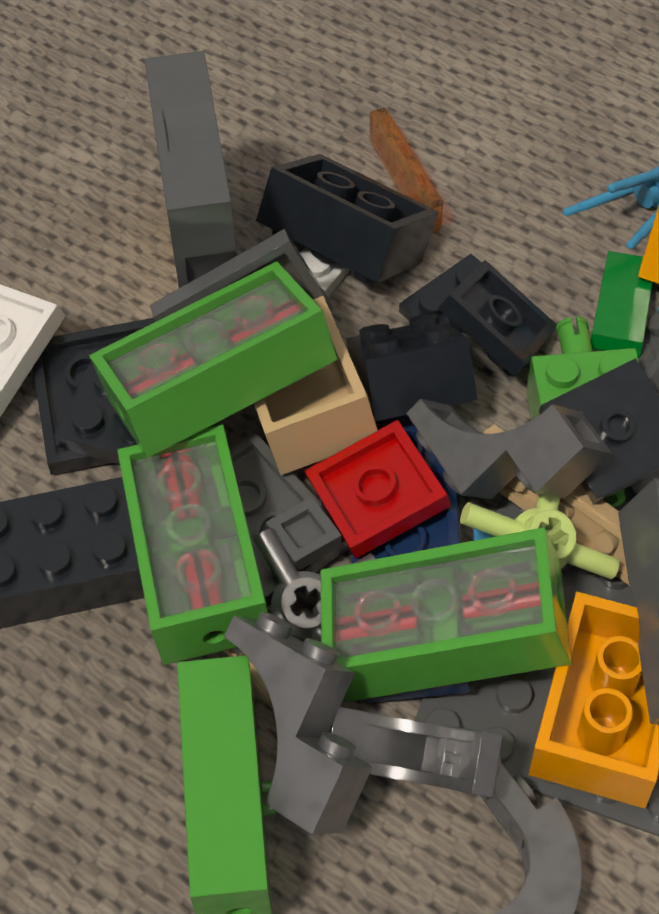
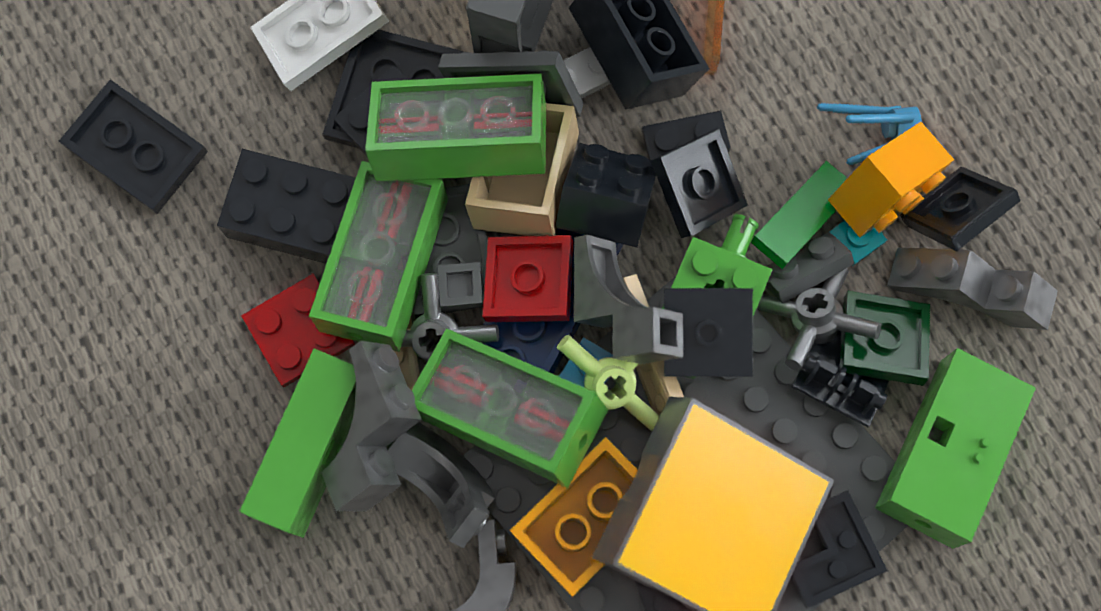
camera: 30 degrees right, 20 degrees up
(124, 690) = (287, 332): none -> red plate

